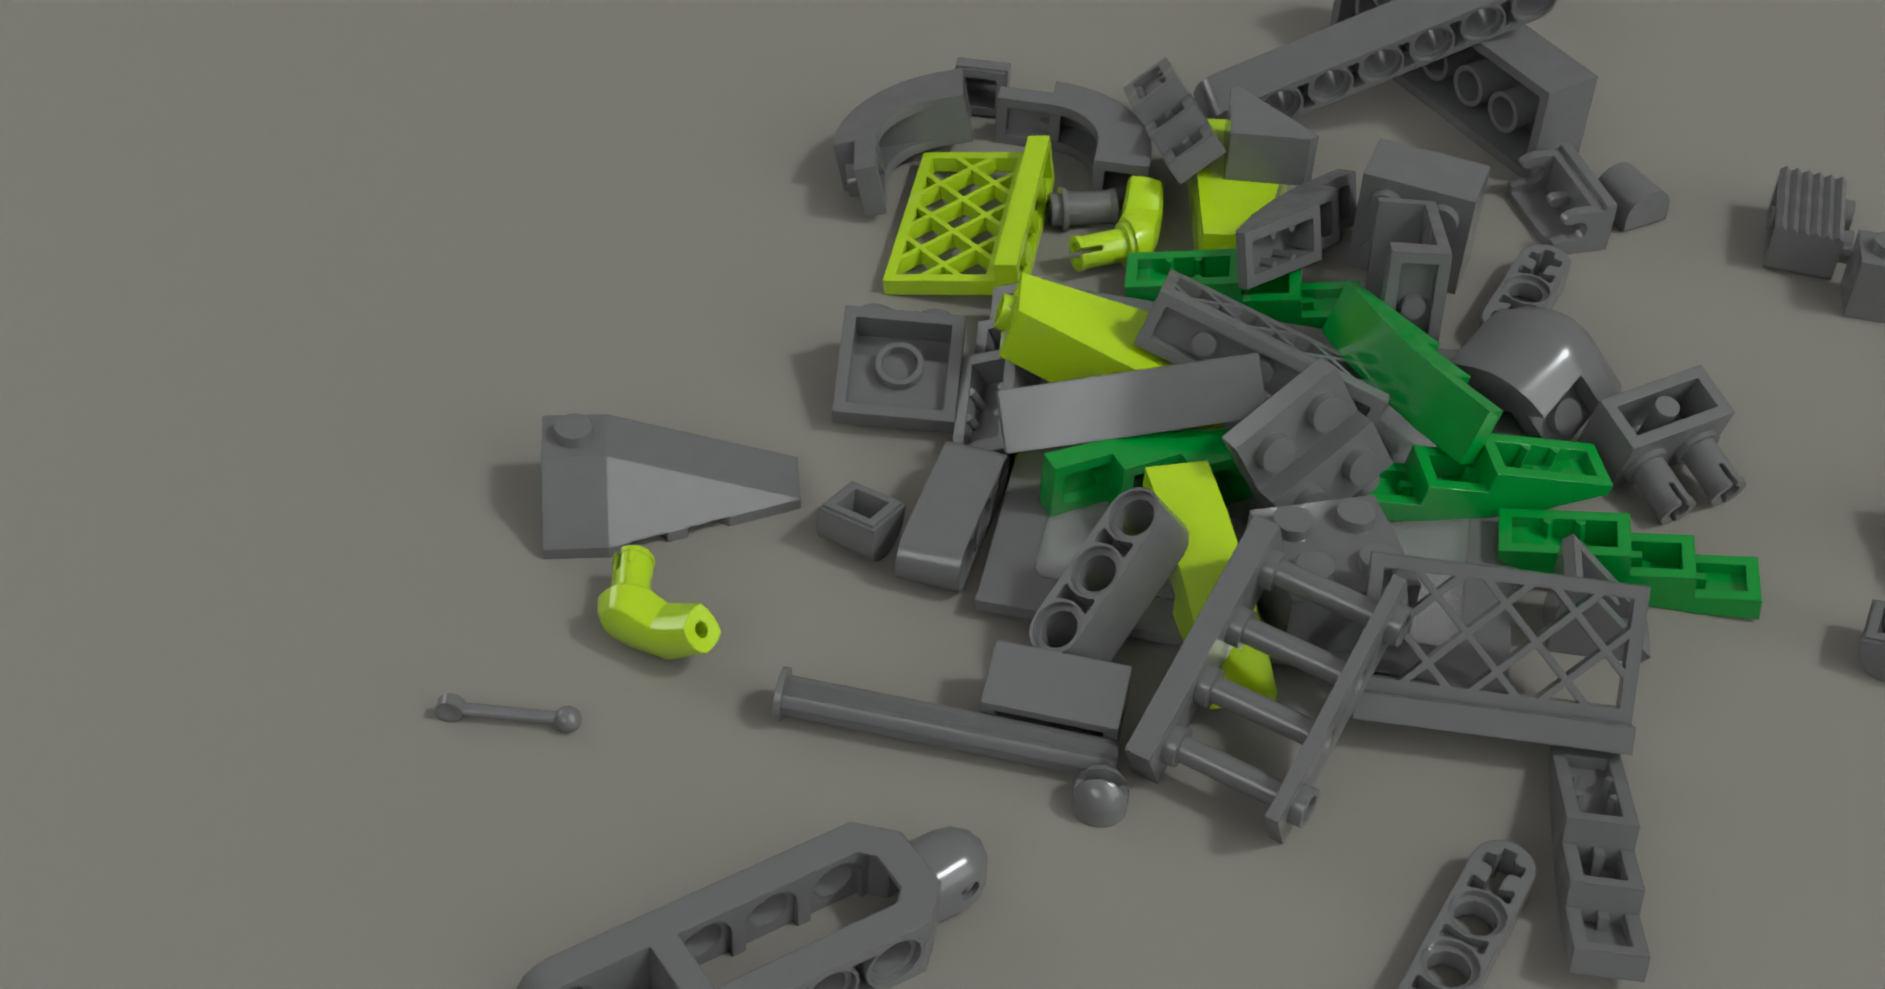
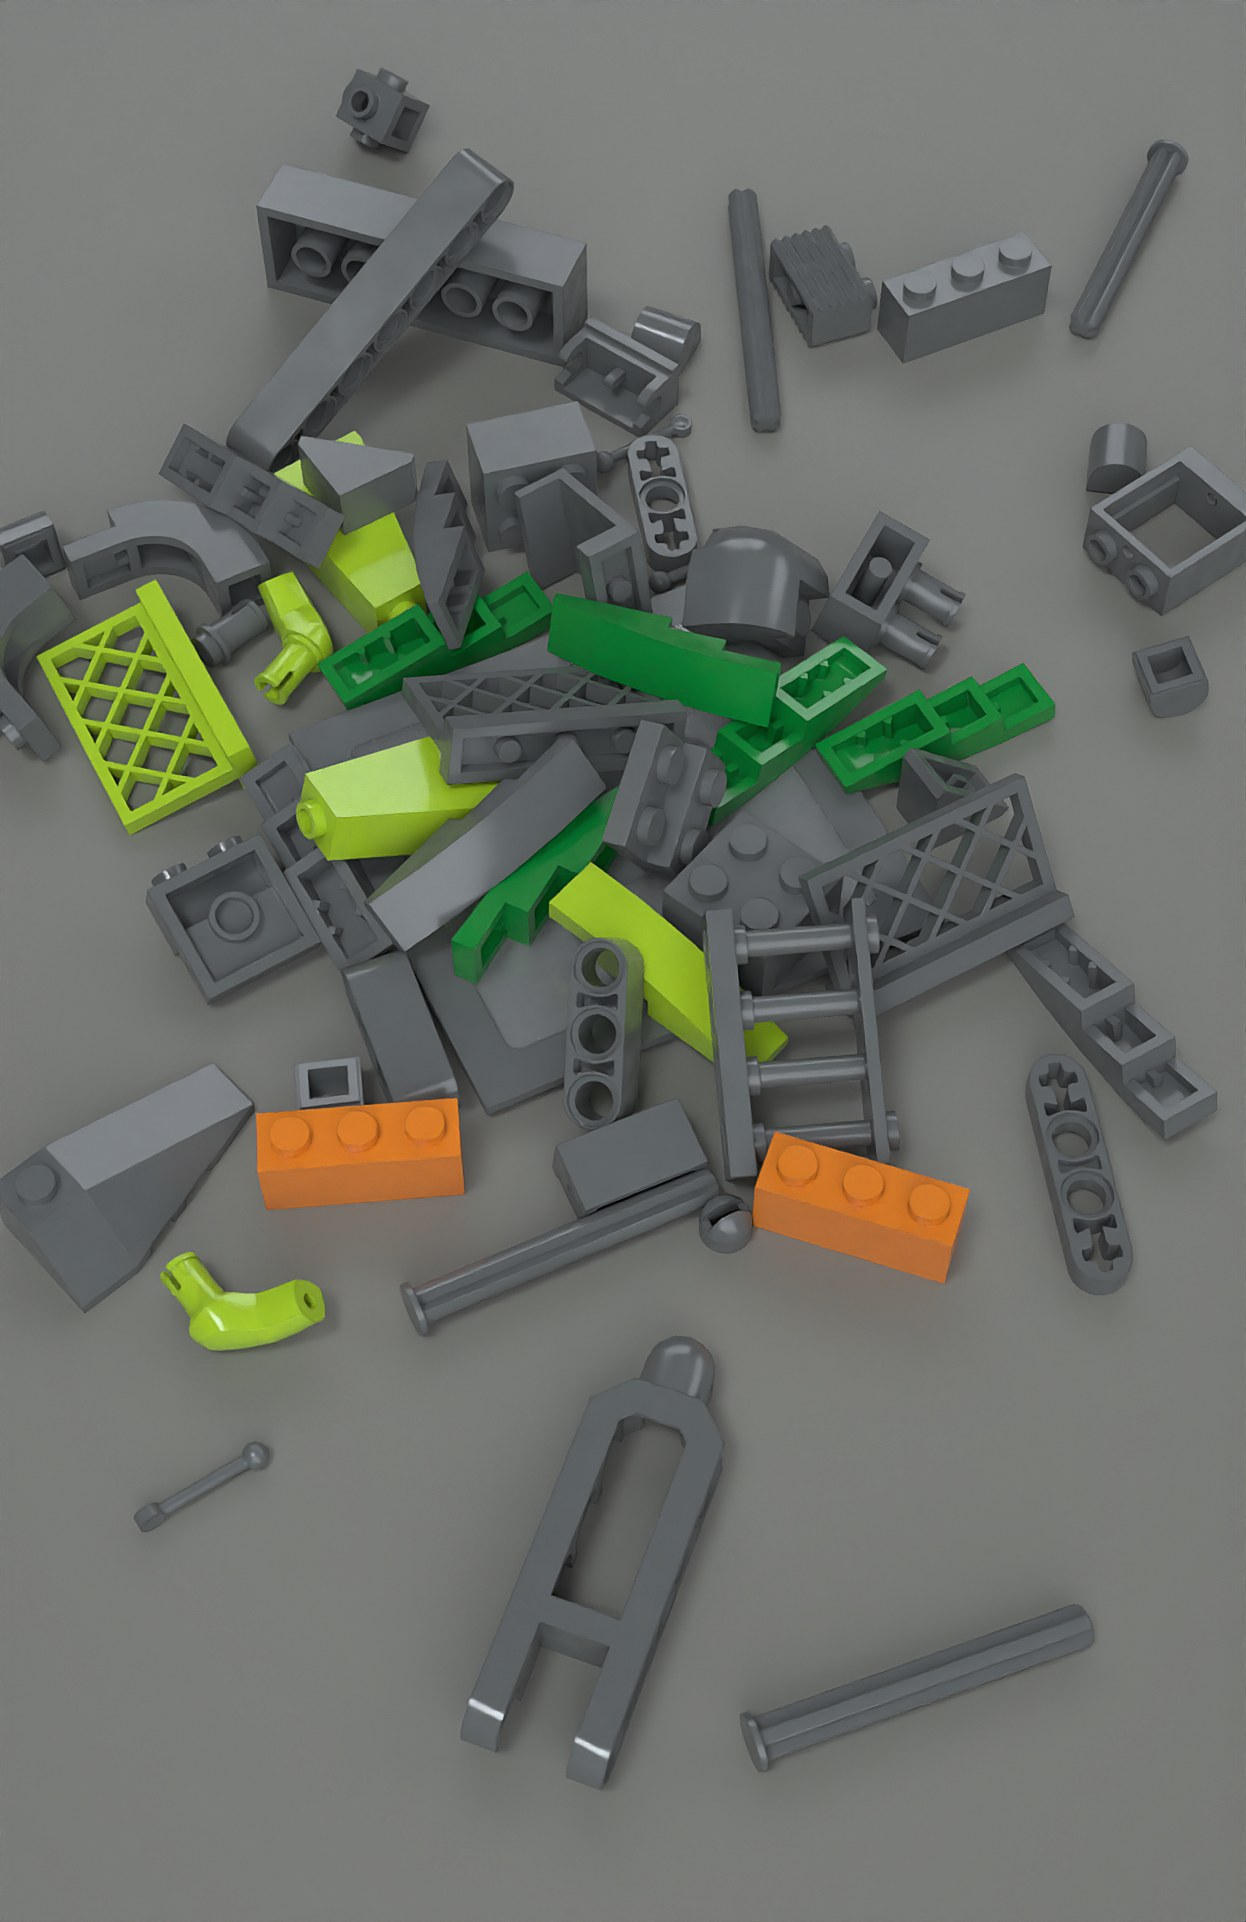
camera: 35 degrees left, 15 degrees up
(843, 567) = (360, 1154): none -> orange brick
(1224, 846) = (859, 1207): none -> orange brick
(1590, 261) = (679, 426): none -> dark grey hinge
(1729, 218) = (754, 311): none -> dark grey axle

